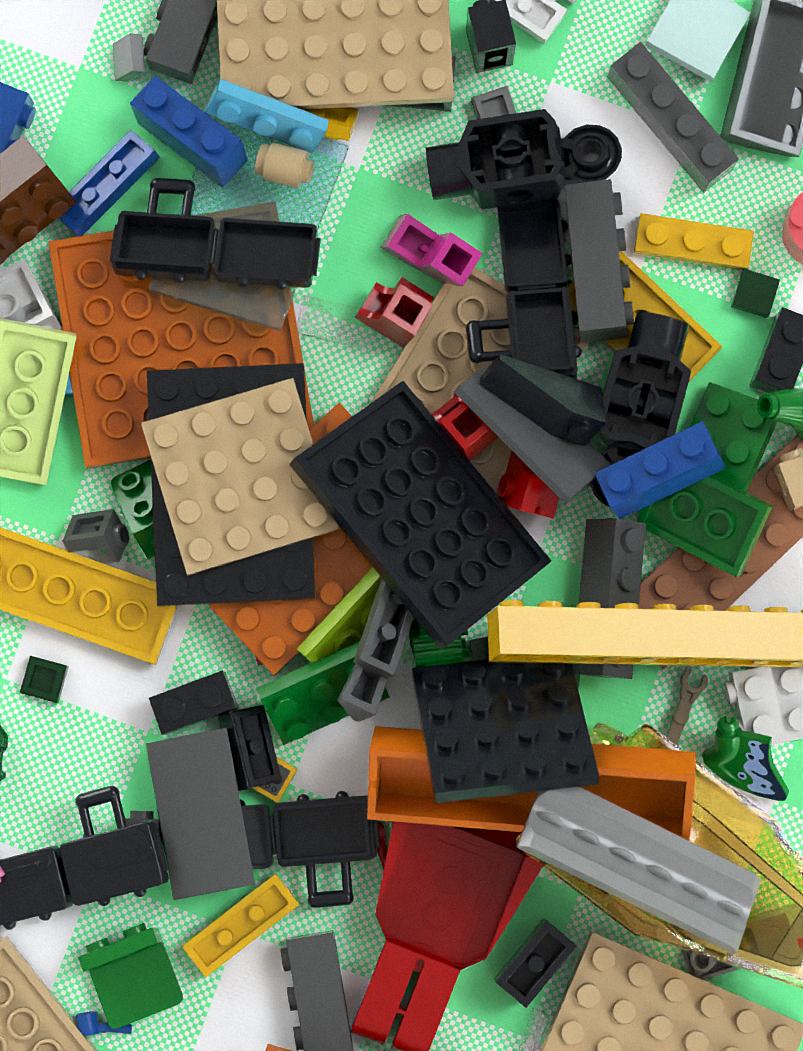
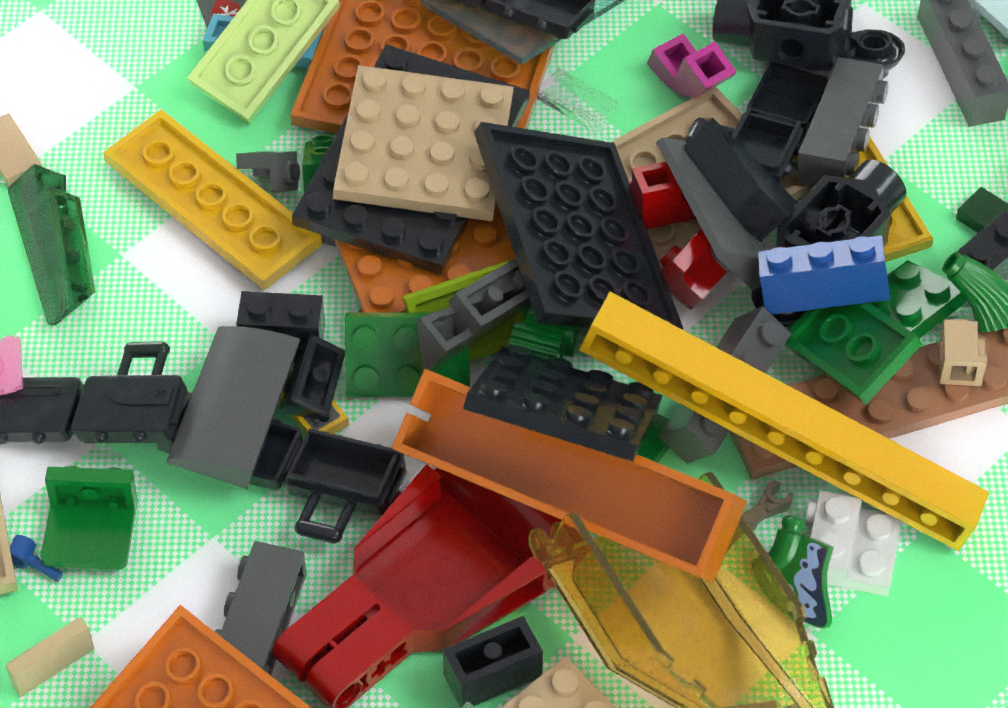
camera: 25 degrees right, 30 degrees down
(44, 679) = (155, 264): dark green tile -> none
(240, 925) = (218, 524): yellow plate -> none
(396, 310) = (635, 98): red brick -> none
(641, 864) = (646, 559): light grey plate -> none
(693, 242) = (941, 154): yellow plate -> none

